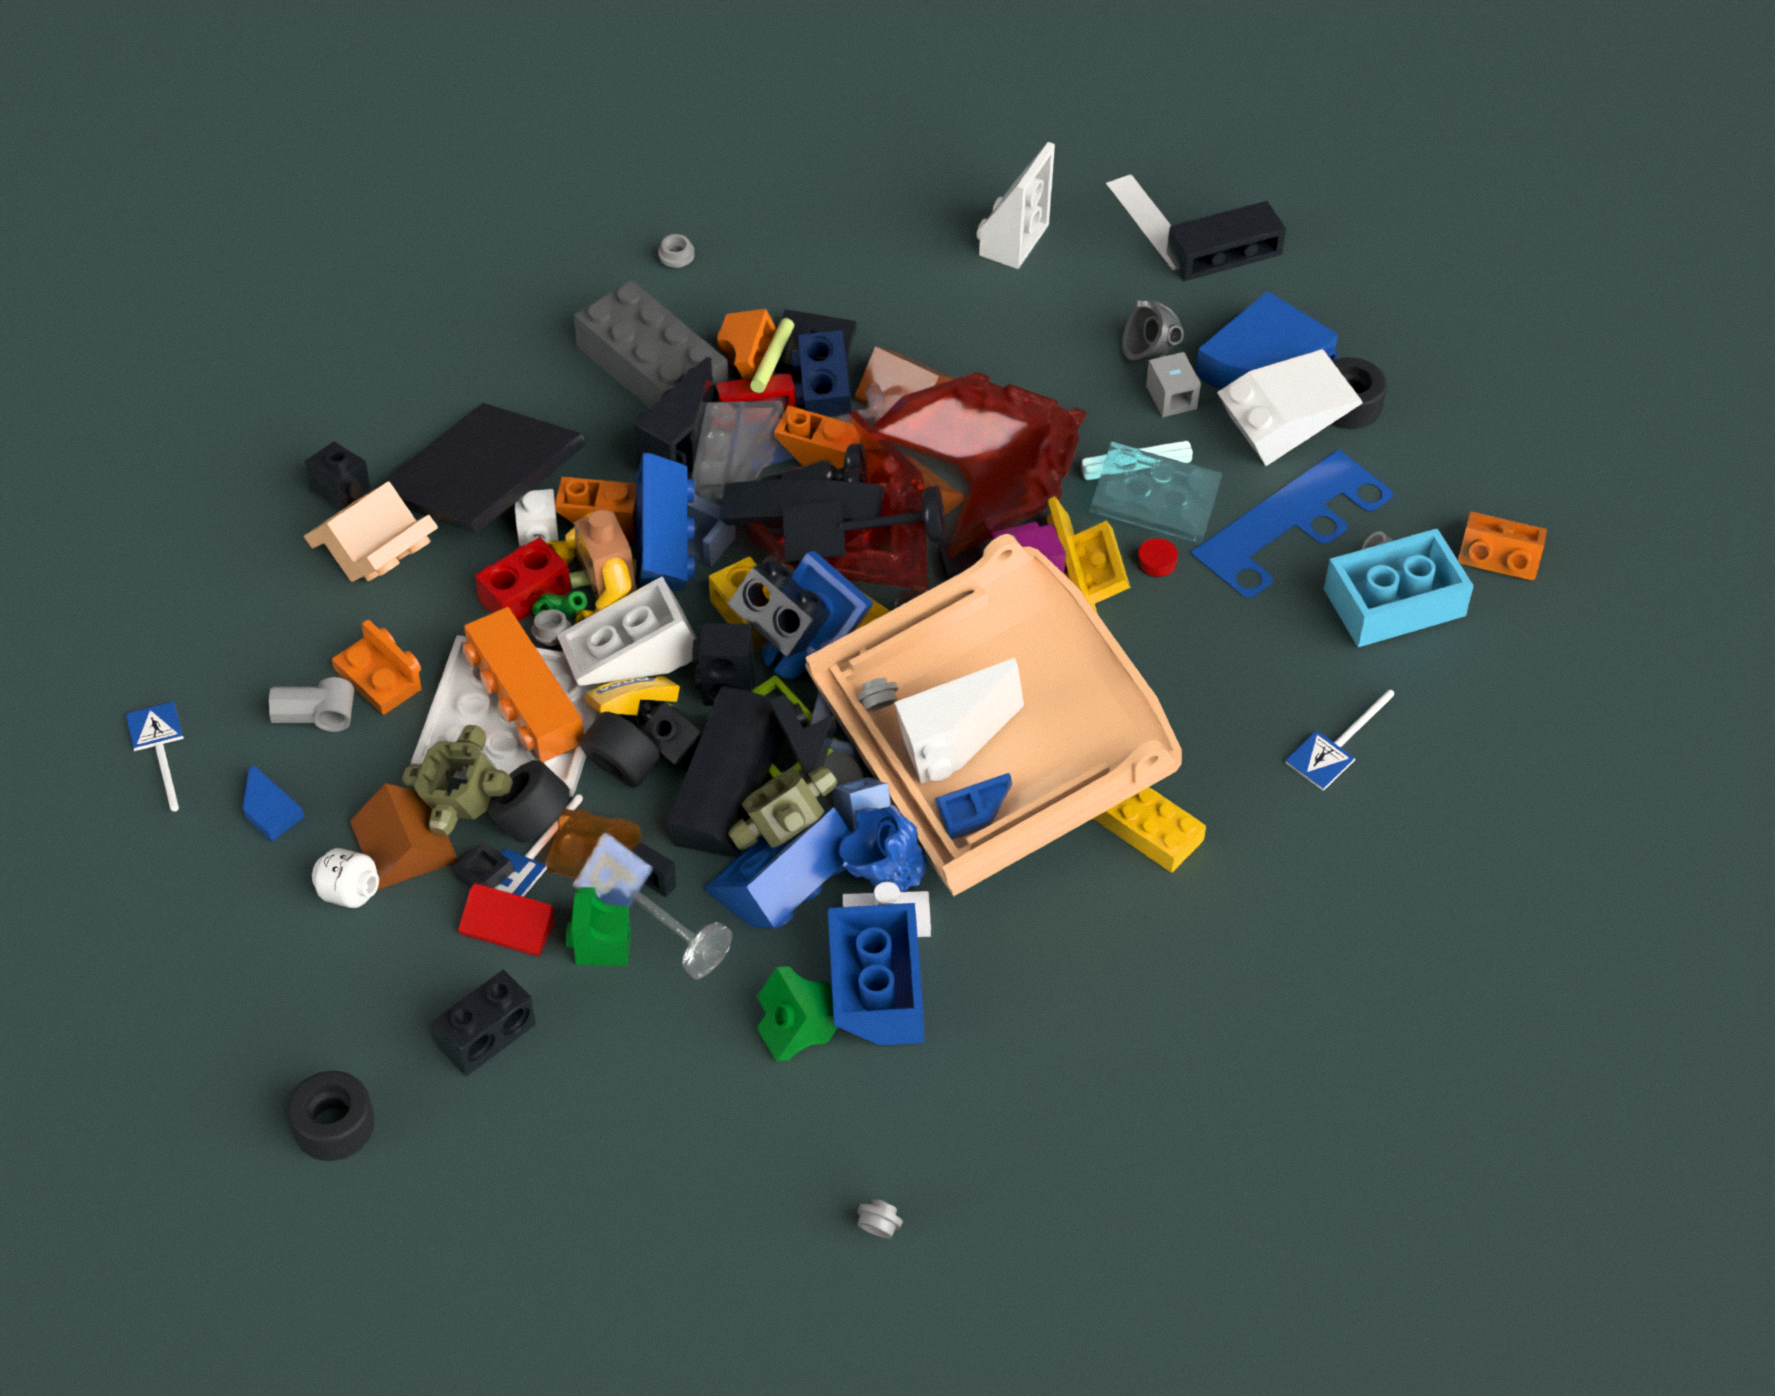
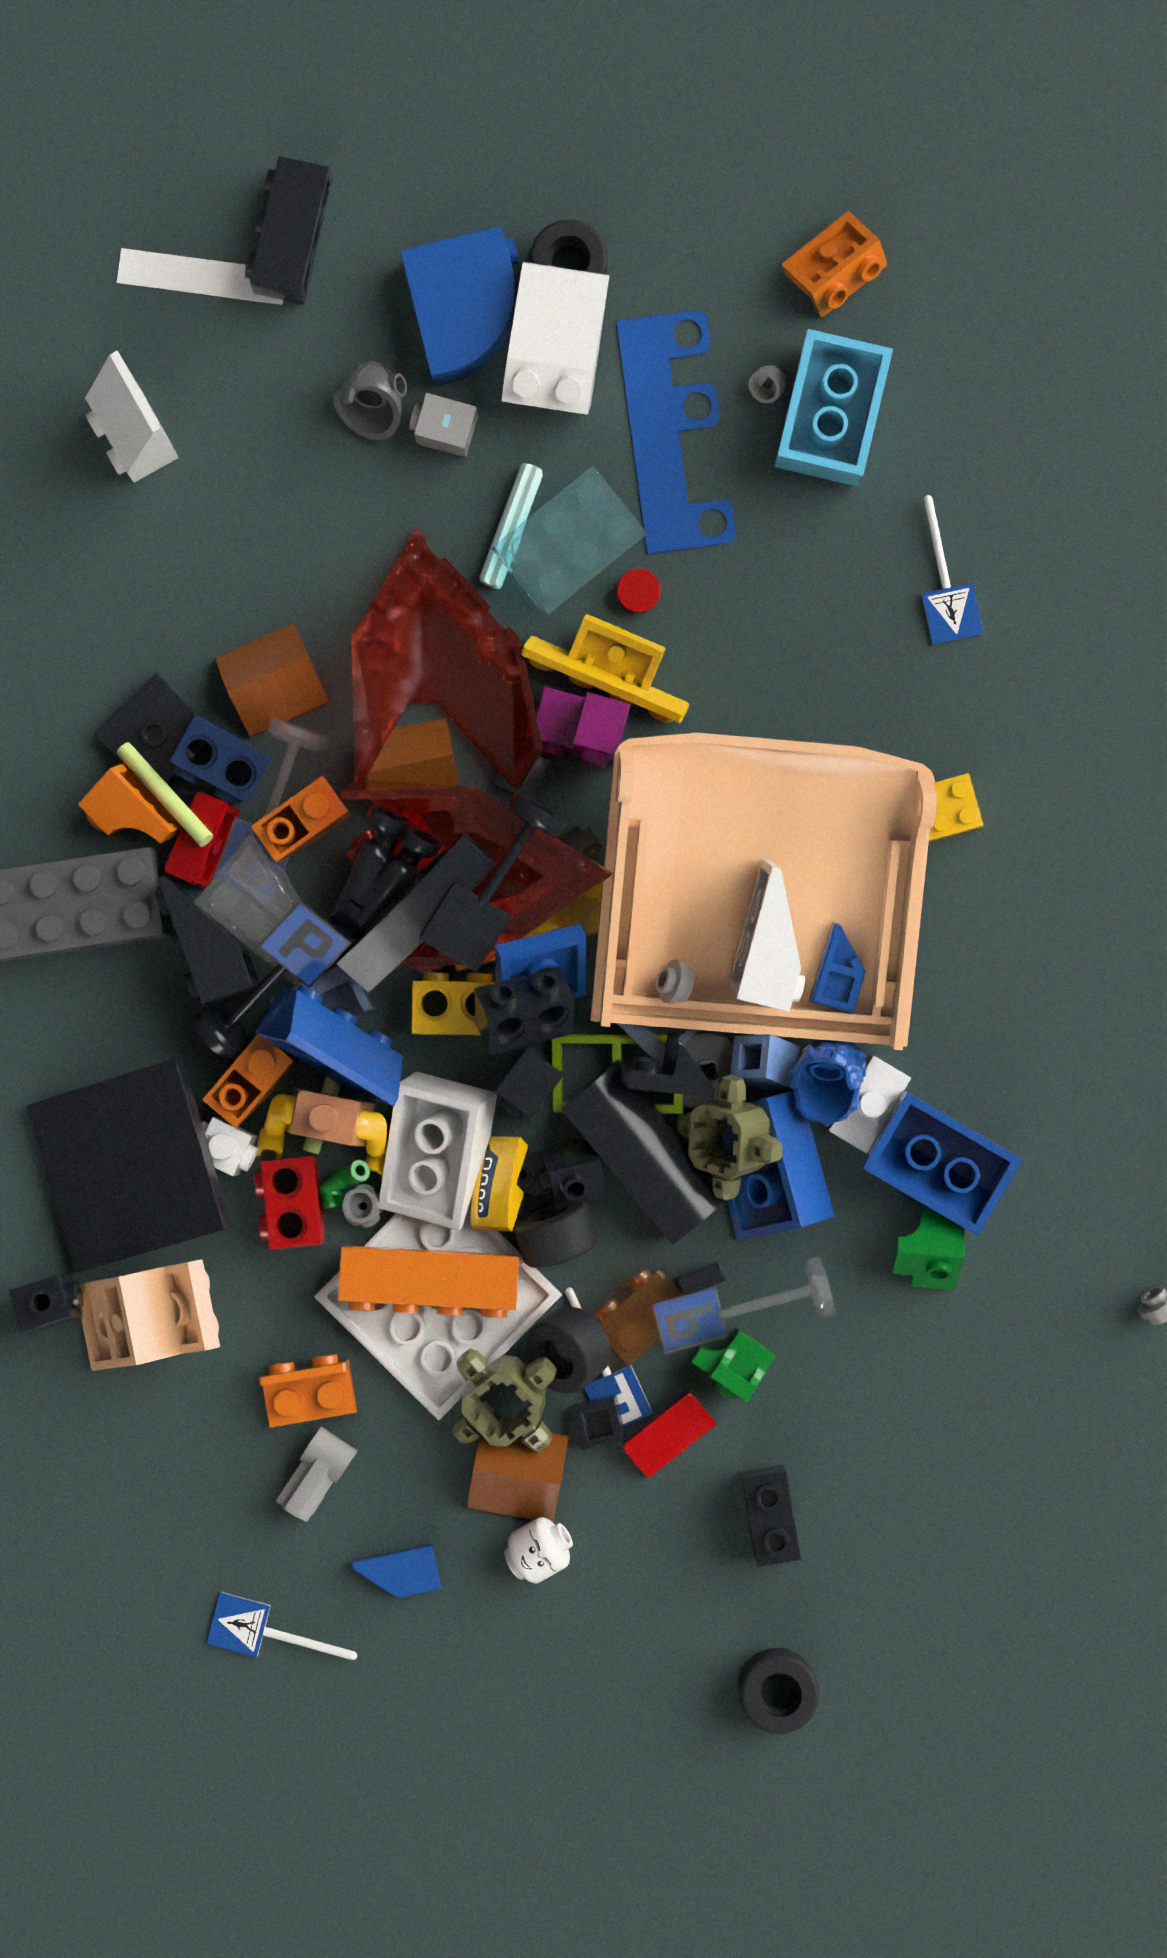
camera: 55 degrees left, 35 degrees up
(721, 461) = (299, 943): none -> black piece

